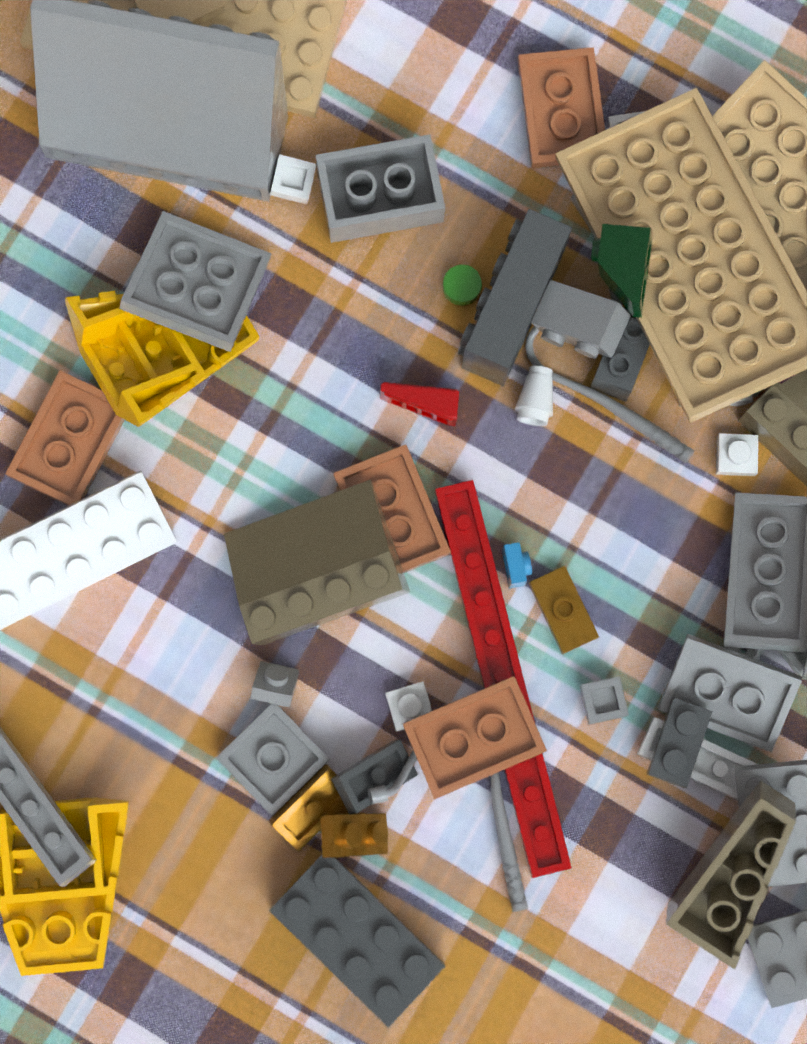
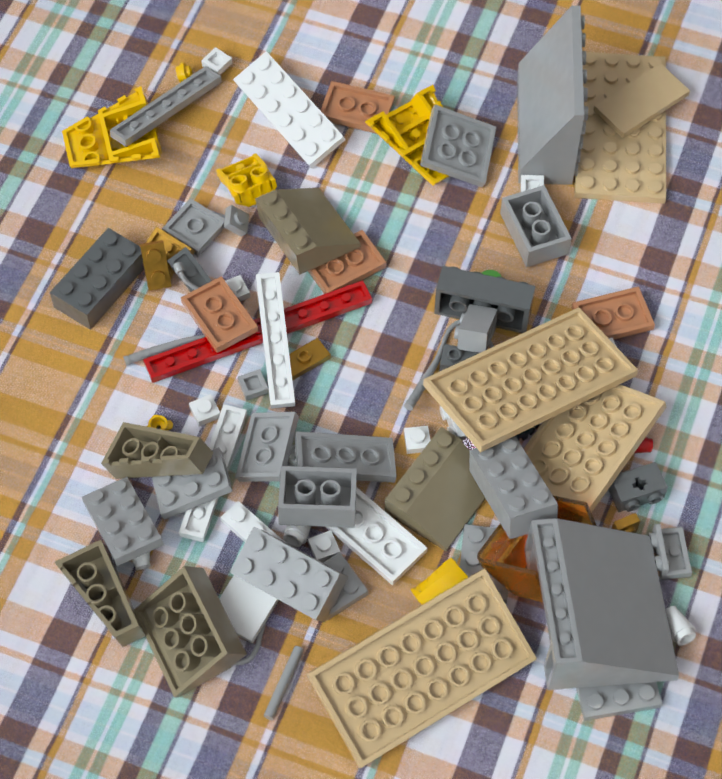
camera: 85 degrees right, 20 degrees down
(192, 653) = (247, 180): none -> yellow slope
(428, 401) = (414, 276): red slope -> none
(516, 565) = (325, 327): dark azure plate -> none
(536, 397) = (429, 325): white cone -> none
(536, 651) = (275, 340): none -> white plate
(624, 263) = (511, 336): dark green slope -> none
(634, 787) = (204, 410): none -> white plate
(669, 866) = (158, 420): none -> yellow plate
(679, 742) = (232, 421): dark grey plate -> none

